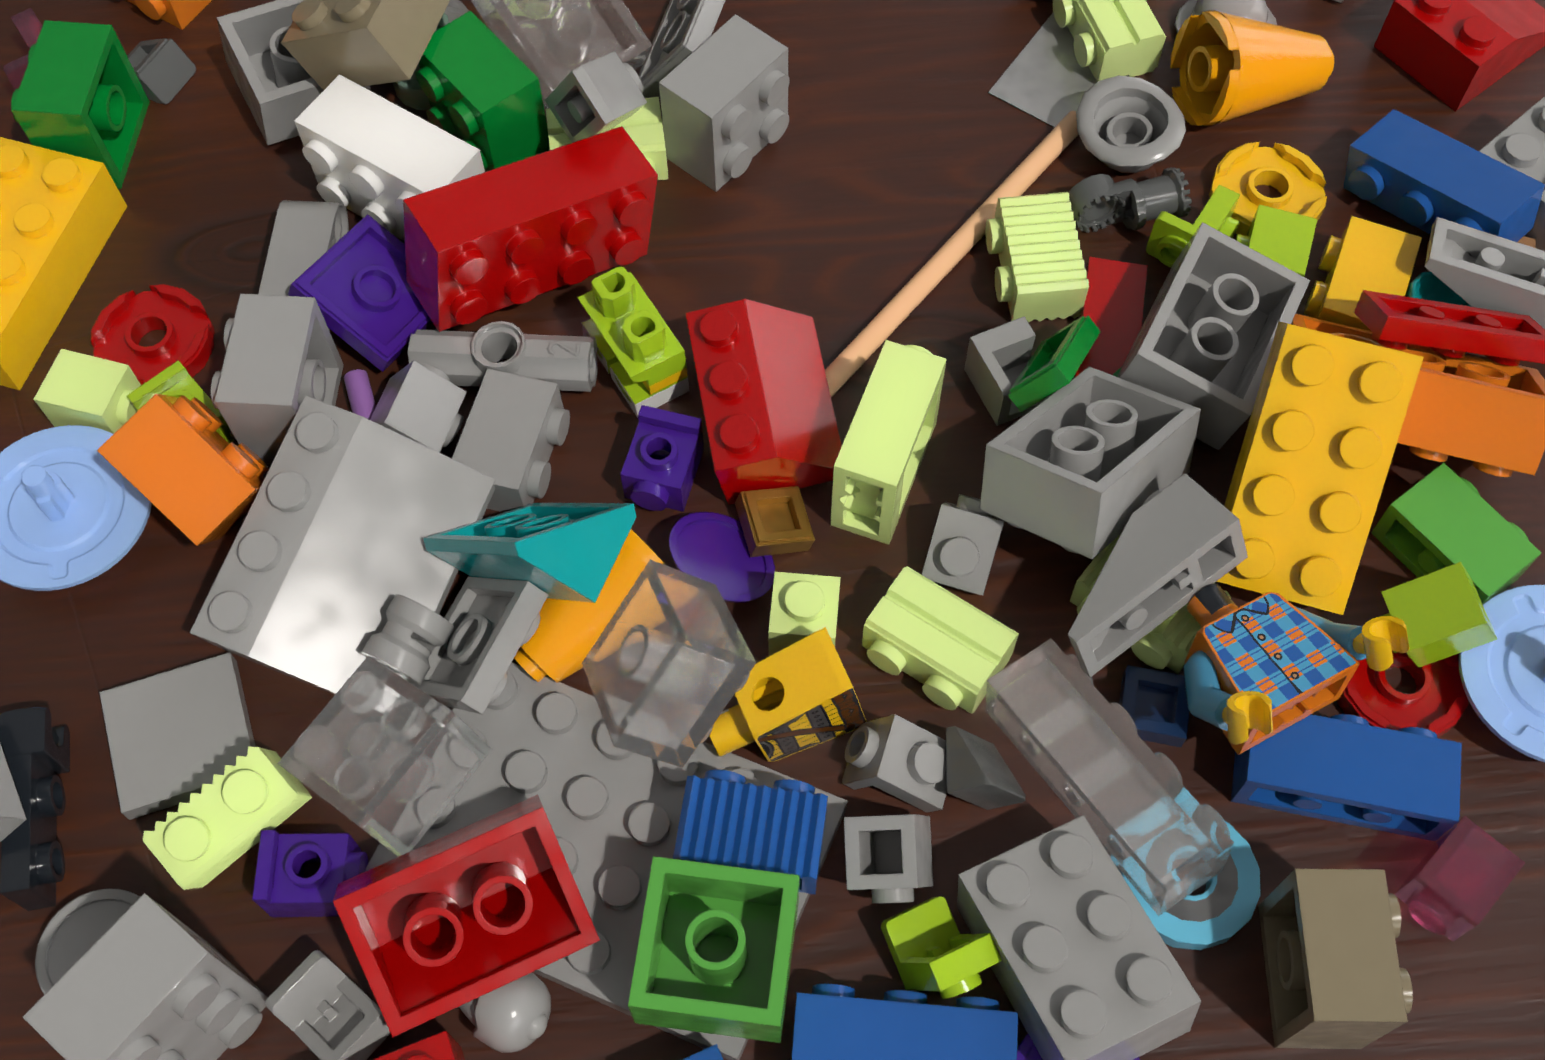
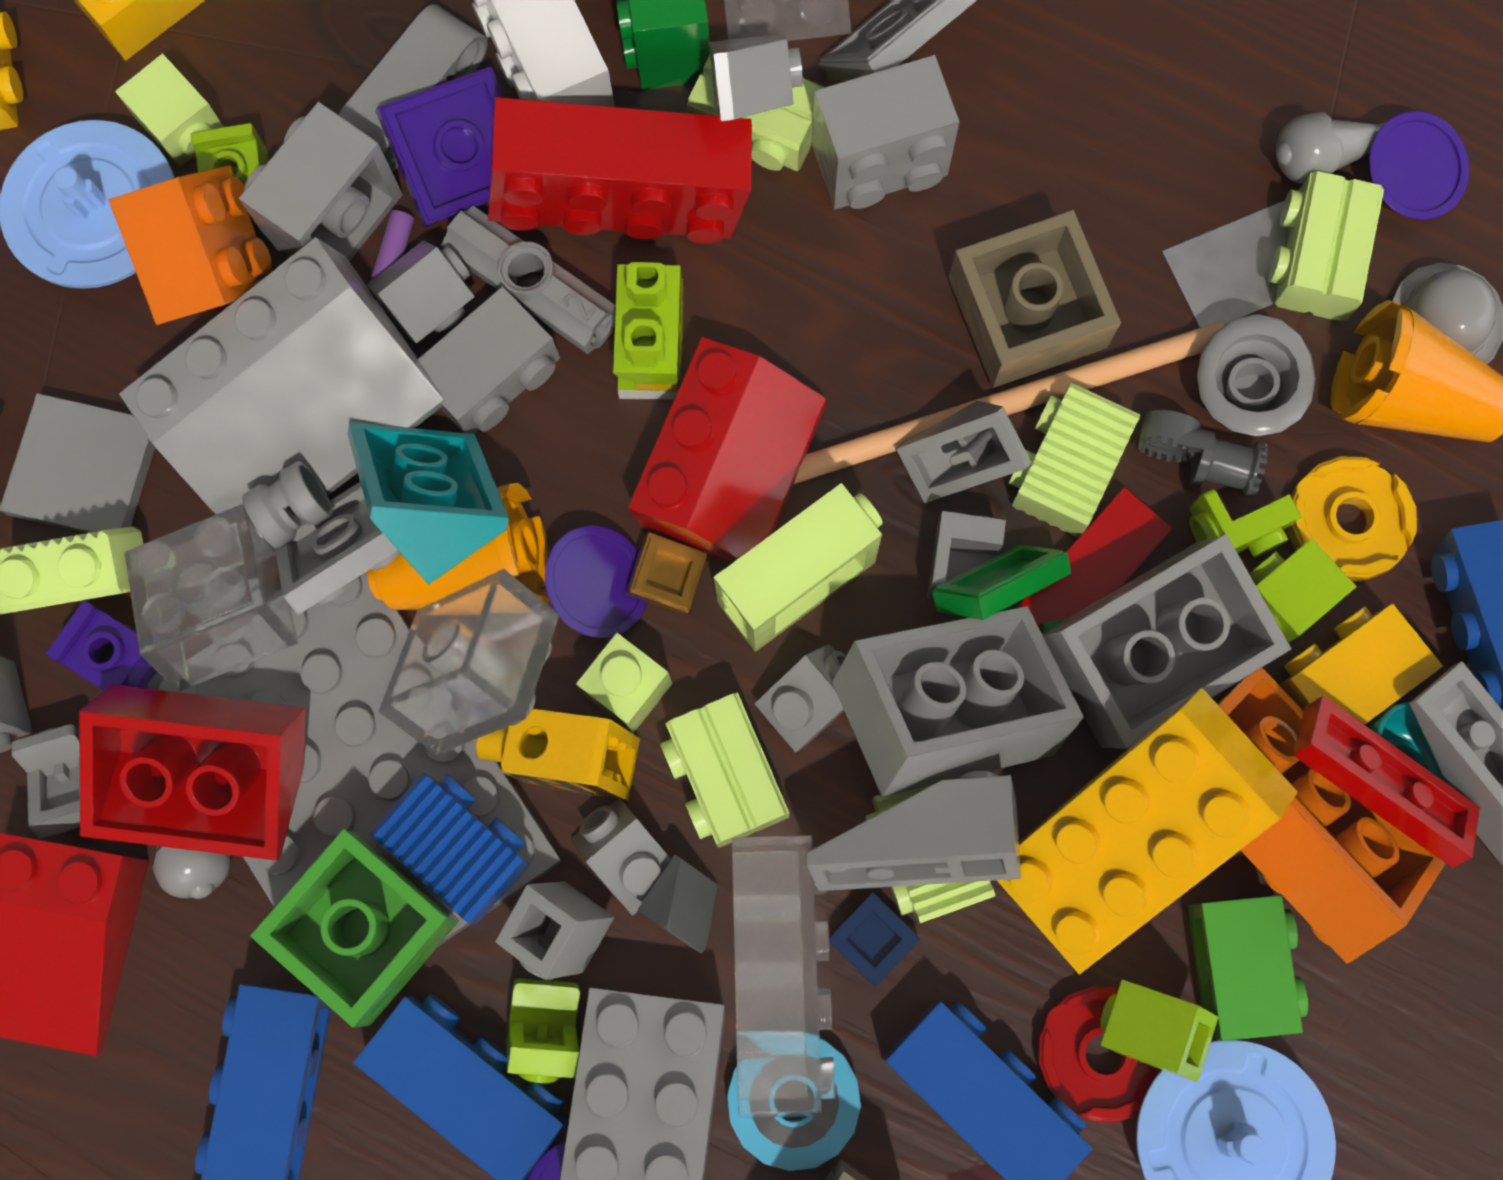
camera: 35 degrees right, 15 degrees up
(165, 308) = (251, 43): red tile -> none
(662, 459) = (606, 482): dark purple brick -> none
(924, 159) = (1033, 298): none -> dark tan brick
(954, 289) = (963, 451): none -> light grey slope
(1274, 662) = (967, 983): torso -> none

